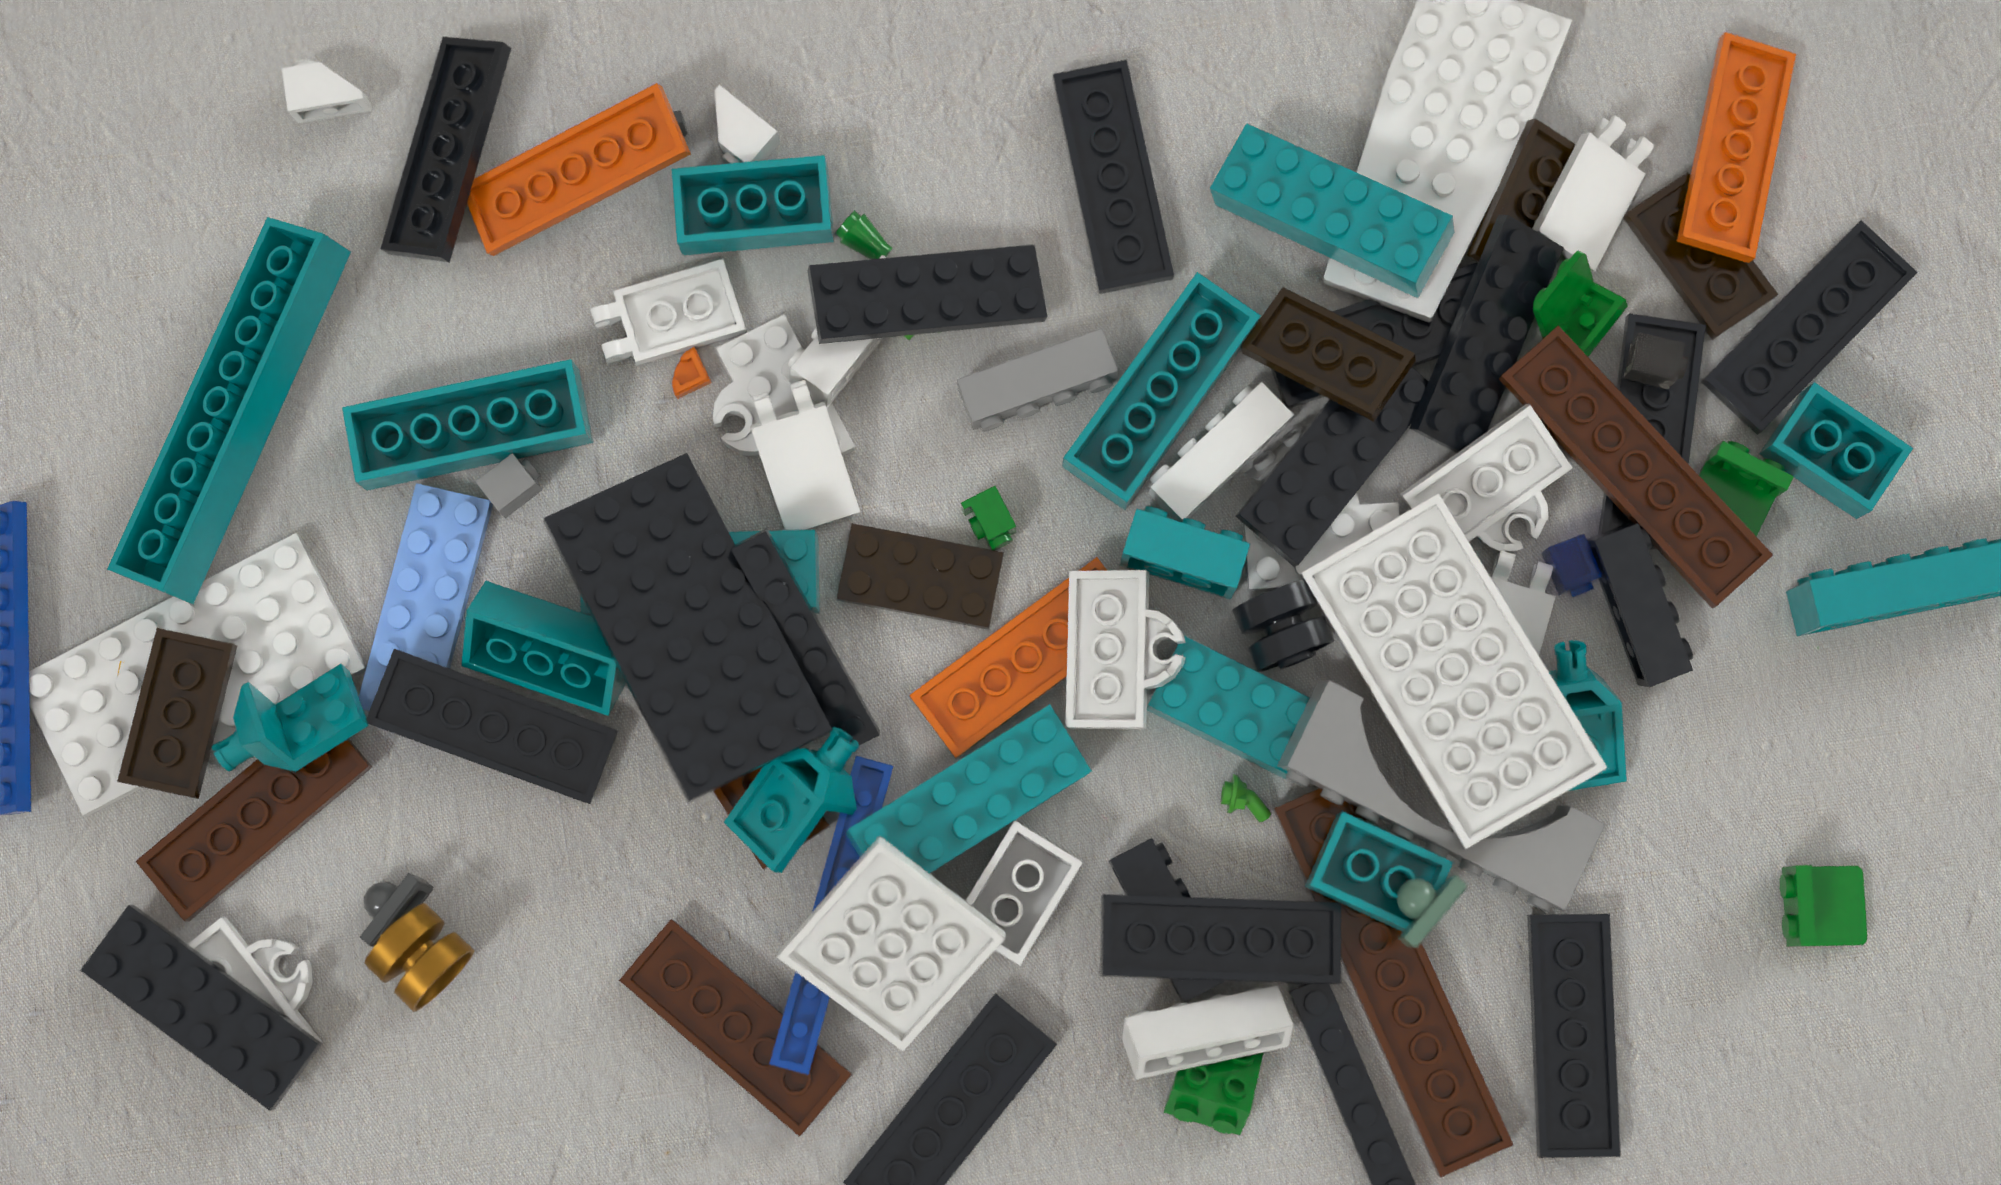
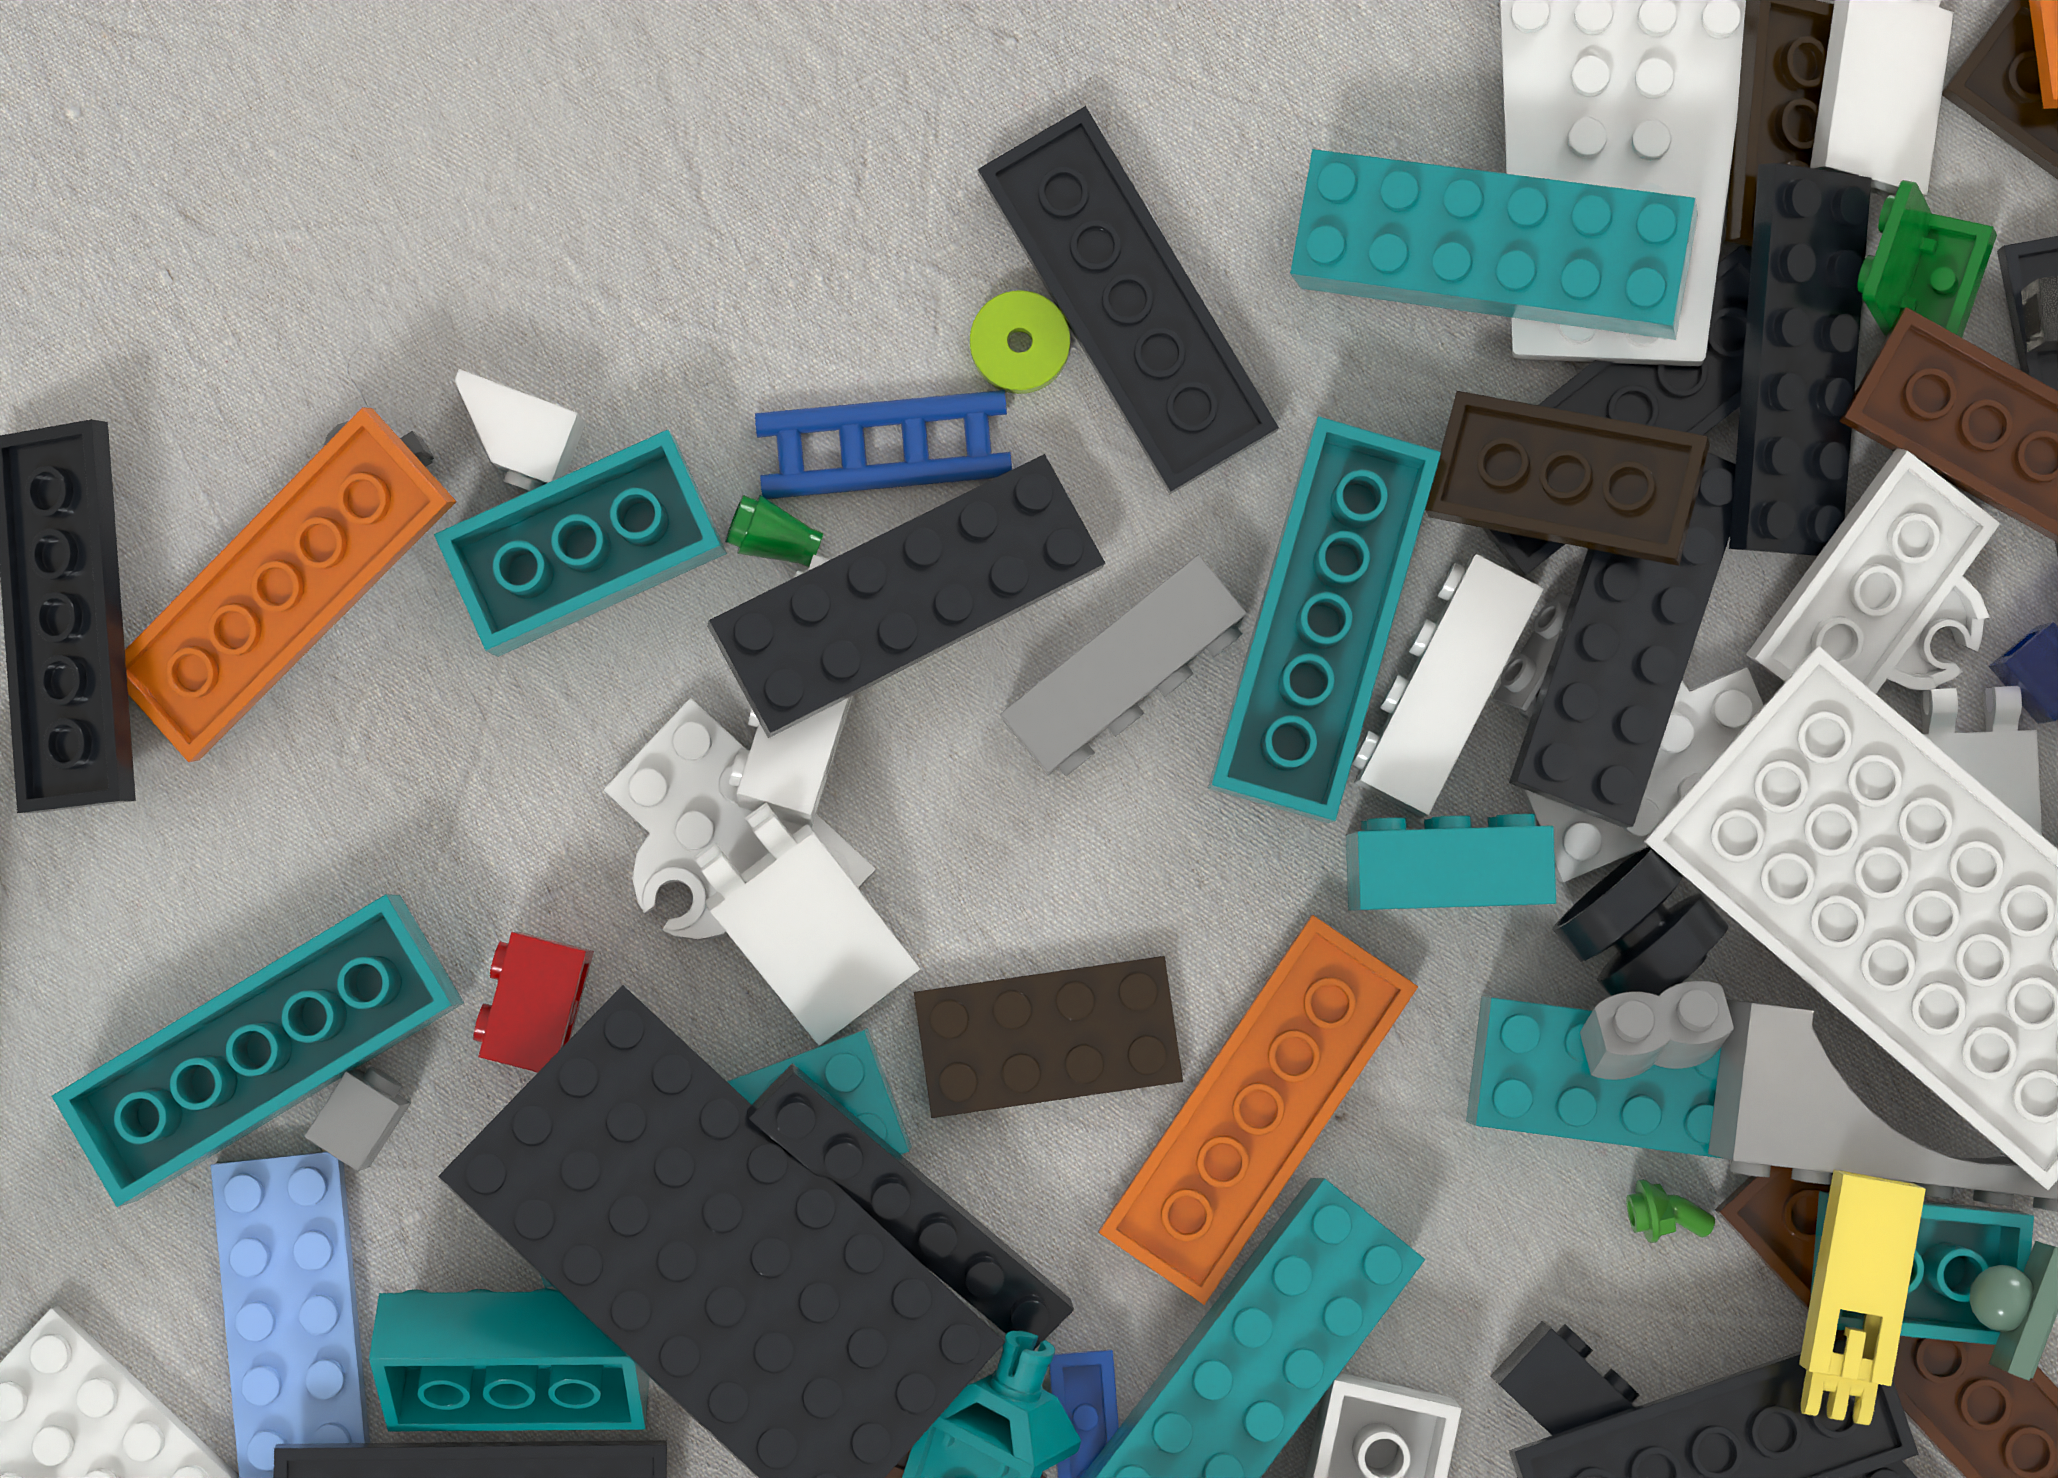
camera: 20 degrees left, 5 degrees up
(634, 448) = (533, 1000): none -> red brick
(671, 314) = (515, 757): white tile -> none
(689, 374) = (575, 841): orange tile -> none
(930, 192) = (851, 421): none -> blue bar
(990, 518) = (1127, 912): green brick -> none
(1046, 163) = (1016, 313): none -> lime piece
(1114, 649) = (1395, 1058): white plate -> none
(1276, 681) = (1666, 1030): none -> light grey brick
(1341, 855) = (1865, 1270): none -> light yellow hinge

